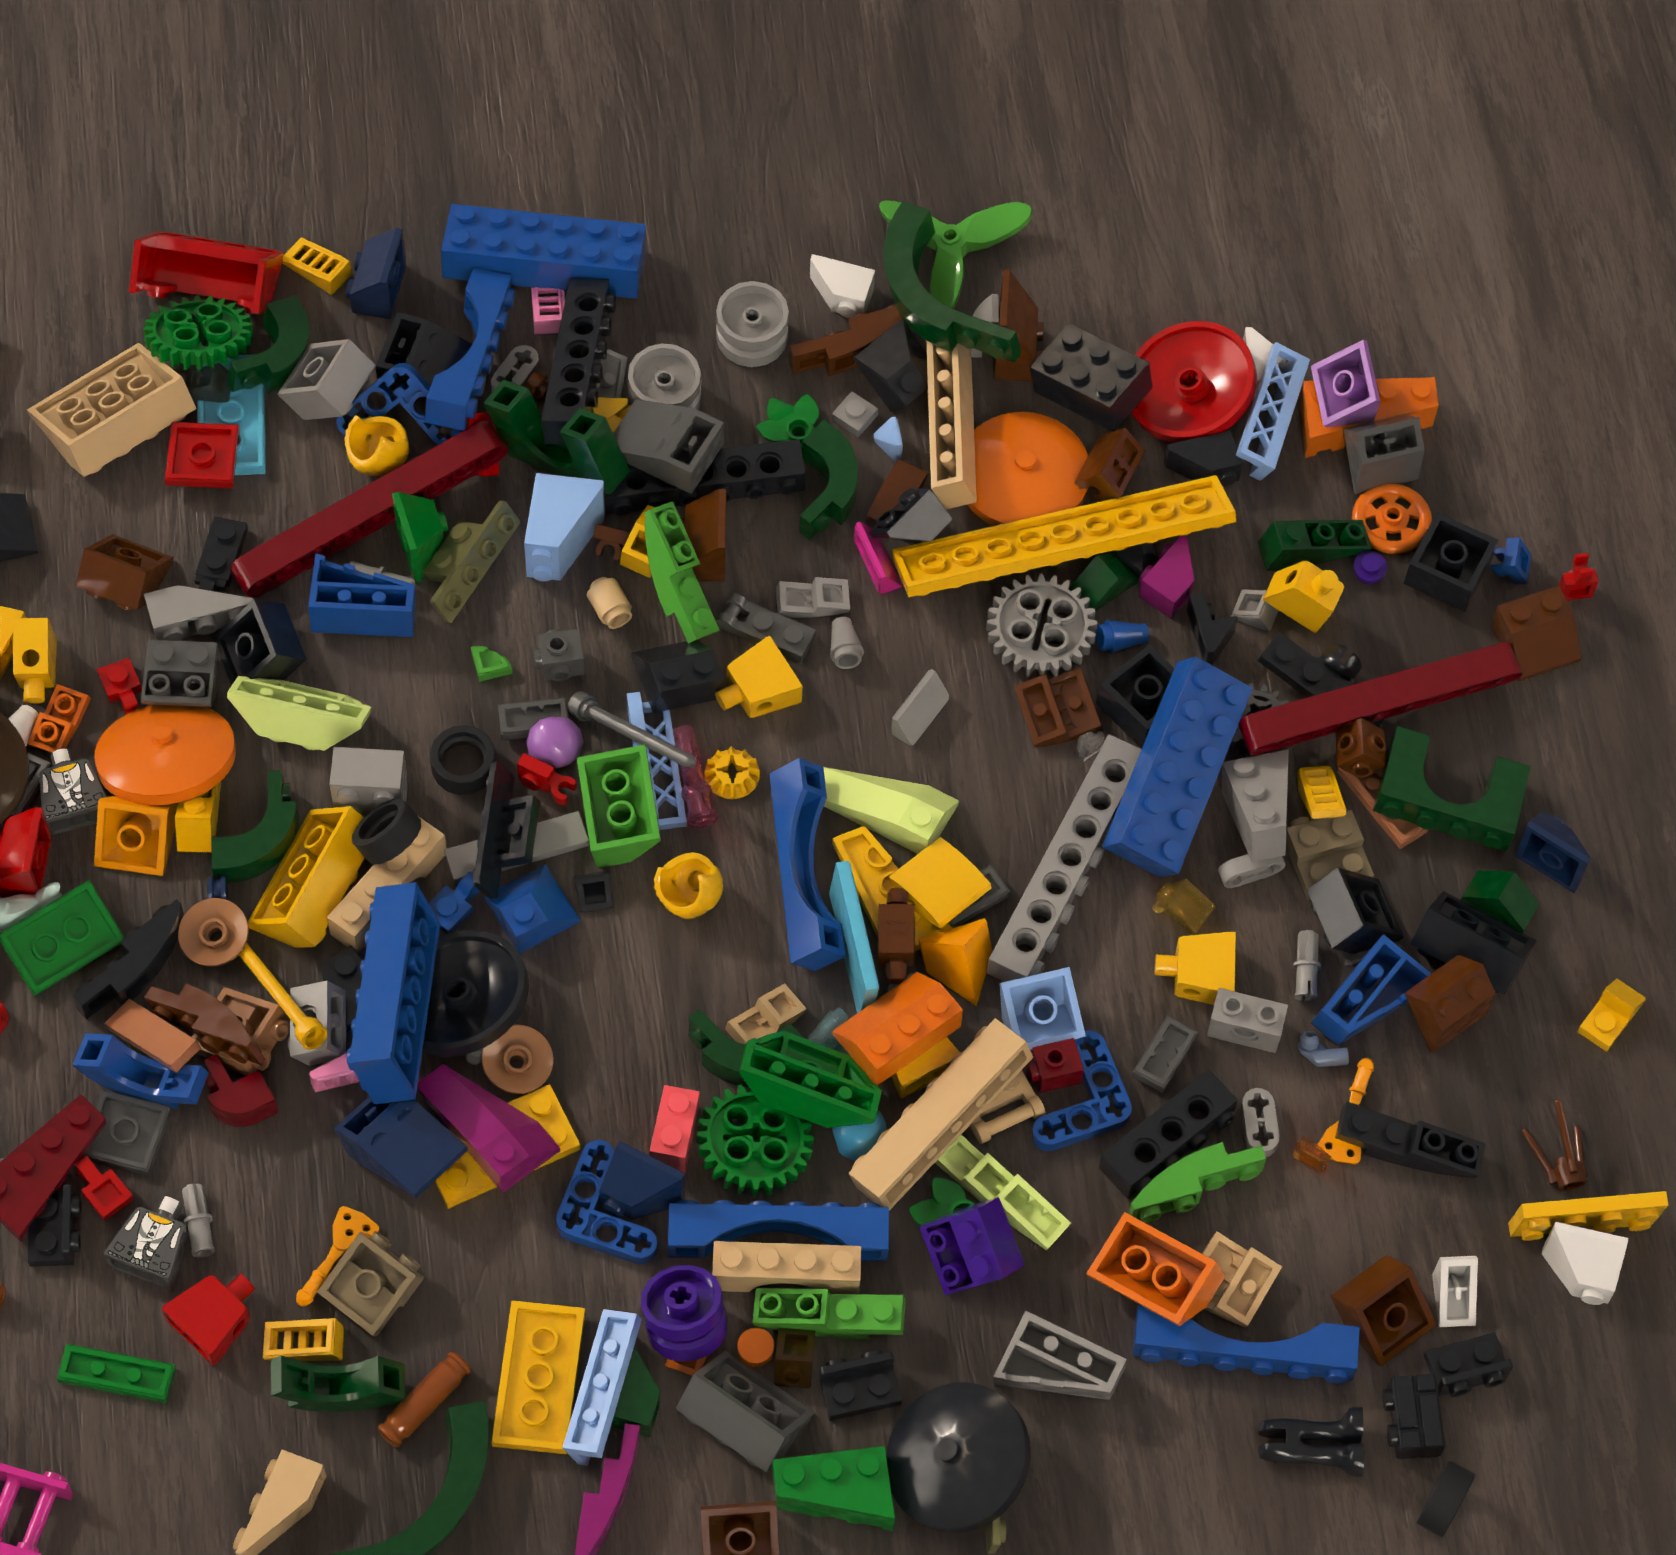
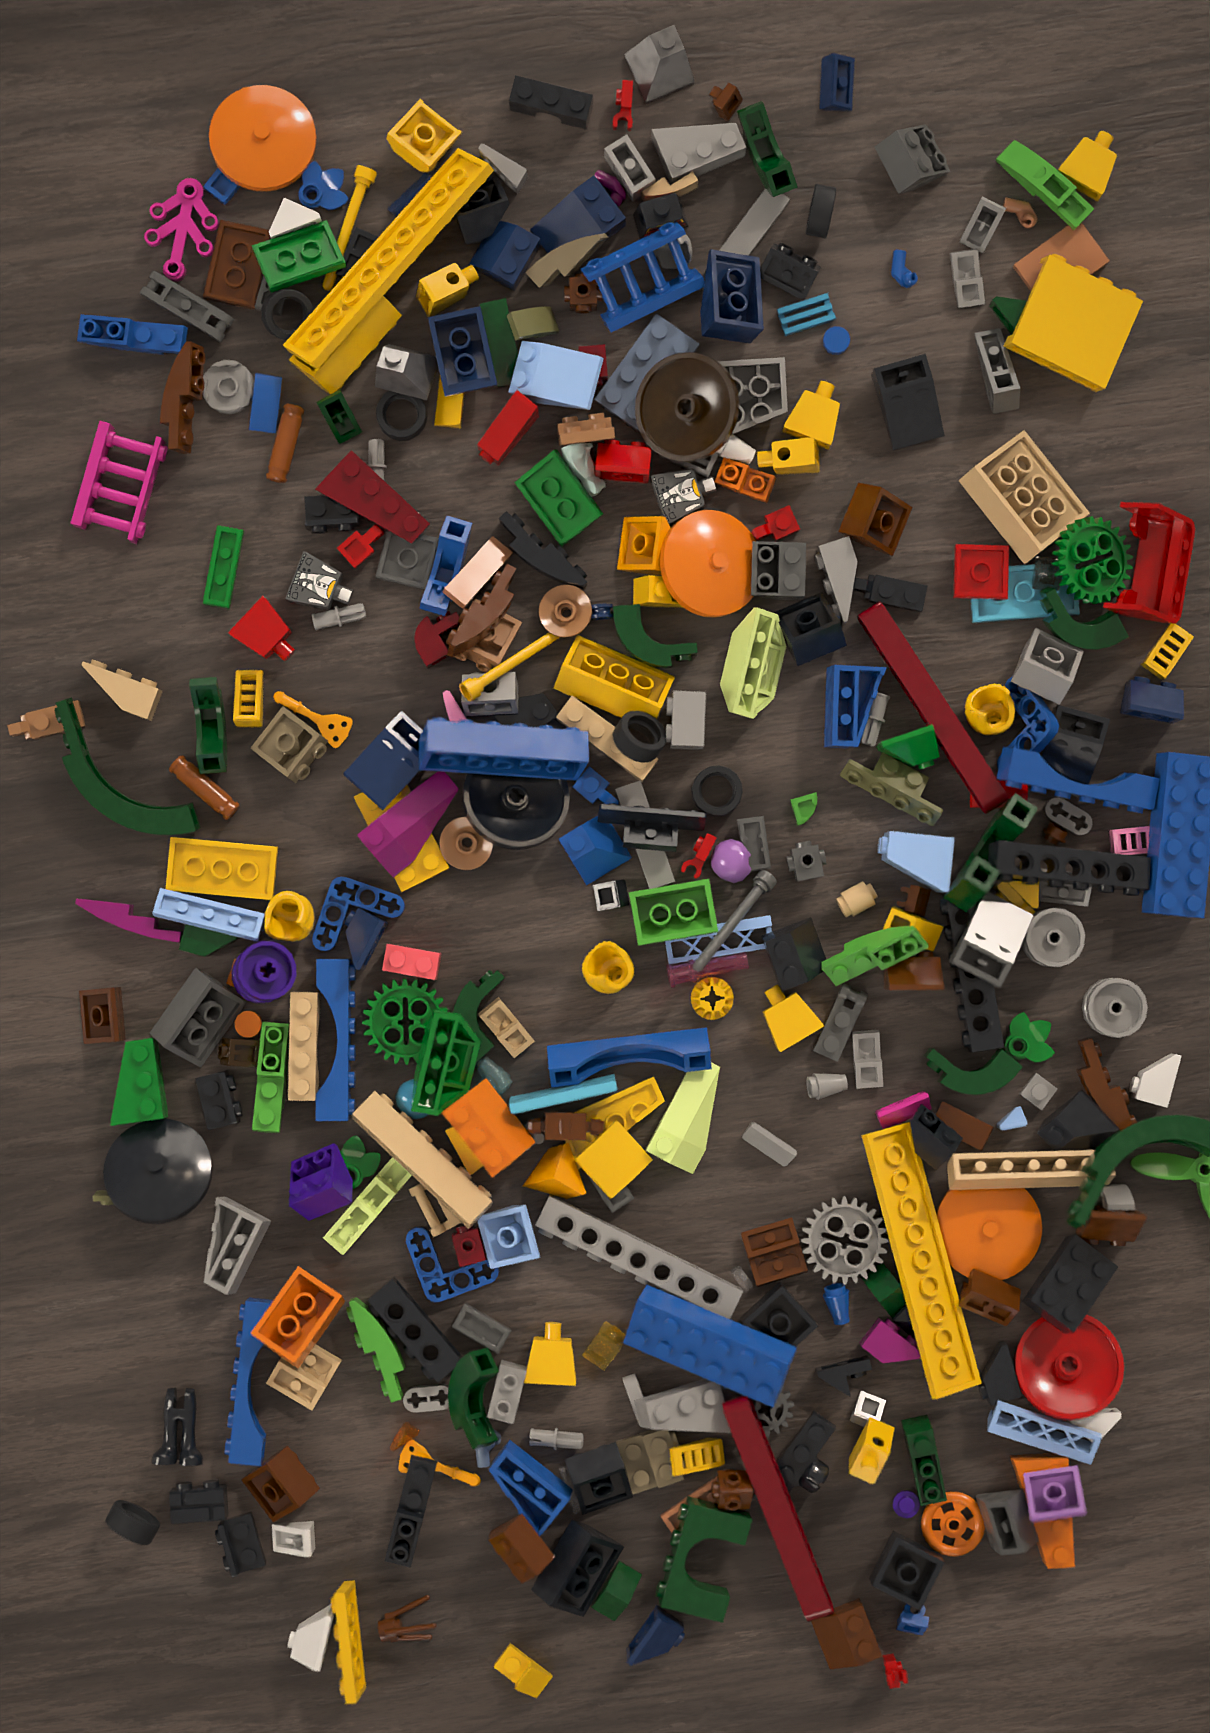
camera: 90 degrees right, 25 degrees up
(609, 1280) = (289, 917): none -> yellow piece
(1254, 1069) = (466, 1397): none -> dark green arch

